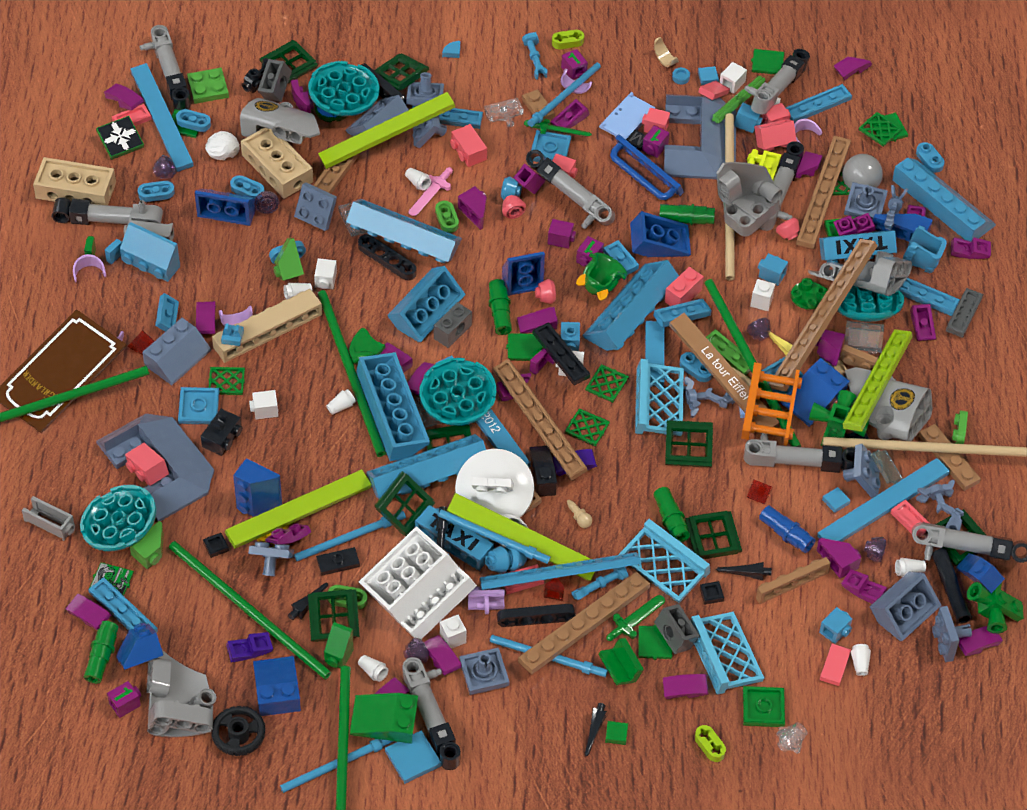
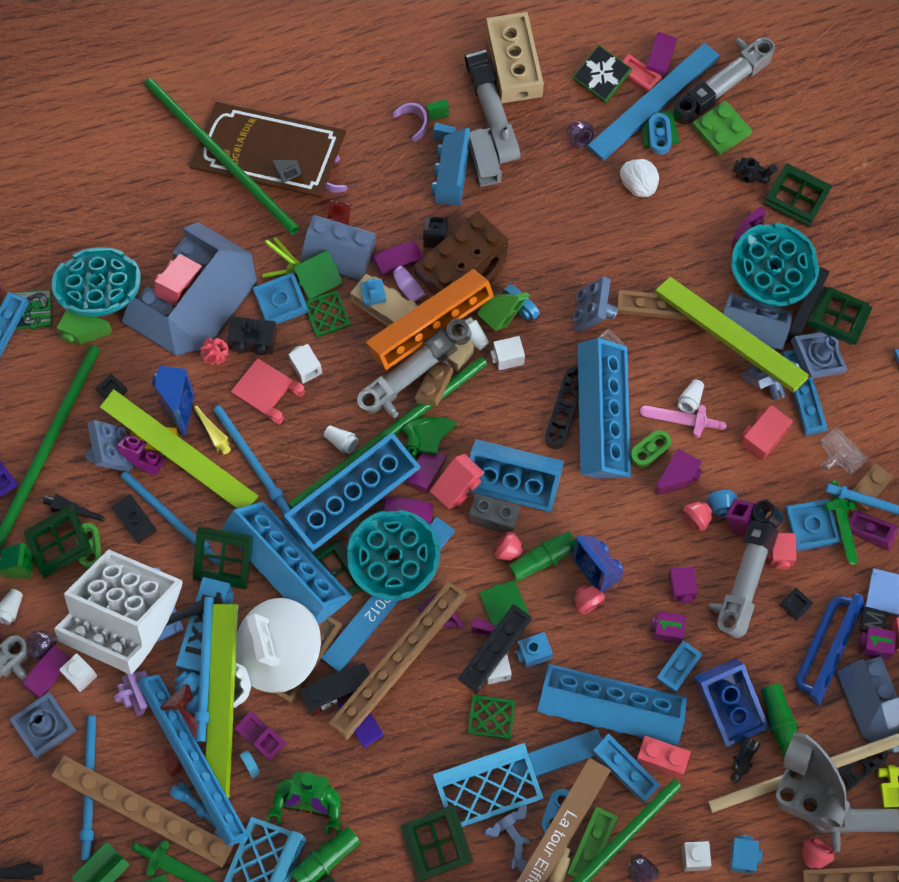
camera: 70 degrees right, 15 degrees up
(52, 513) = (78, 203): light grey window -> none
(91, 357) = (287, 169): none -> dark grey slope
(156, 191) = (547, 140): dark azure plate -> none
(166, 312) = (385, 218): dark azure plate -> none
(172, 386) = (284, 253): none -> lime plant
(191, 371) = (317, 274): none -> green piece
(197, 285) = (434, 231): none -> black slope
(222, 460) = (214, 351): none -> coral gear
(225, 206) = (555, 213): blue slope -> none
(232, 290) = (441, 264): none -> reddish brown piece
(245, 186) = (593, 227): dark azure plate -> none
(266, 202) = (580, 252): clear purple cone -> none
(270, 440) = (263, 388): none -> coral flag
(274, 80) = (752, 189): dark grey brick -> none
(276, 162) = (639, 239): tan brick -> none
(278, 302) = (428, 318): none -> orange brick
(282, 118) = (694, 216): light grey panel -> none
(296, 484) = (217, 437): none -> light yellow piece
(305, 311) = (436, 349): none -> light grey piece
(327, 327) = (434, 385): none -> medium nougat plate
(365, 460) = (275, 493): none -> dark azure bar
(418, 335) = (457, 481): none -> coral brick
(481, 325) = (508, 547): none -> coral cone
(509, 562) = (179, 699): none -> clear red slope
(531, 321) = (545, 606): magenta slope -> none
(535, 615) = (134, 754): black beam -> none
(560, 529) = (259, 736): none -> magenta slope
(577, 541) = (250, 763): none -> medium azure tile
(583, 437) = (421, 699): green window -> none
(583, 519) = (284, 759): tan bar -> none
(601, 275) = (637, 653): green hair -> none
(604, 178) = (796, 604): none -> black tile
(620, 507) = (308, 795): none -> green torso
(697, 238) = (742, 762): none -> black piece

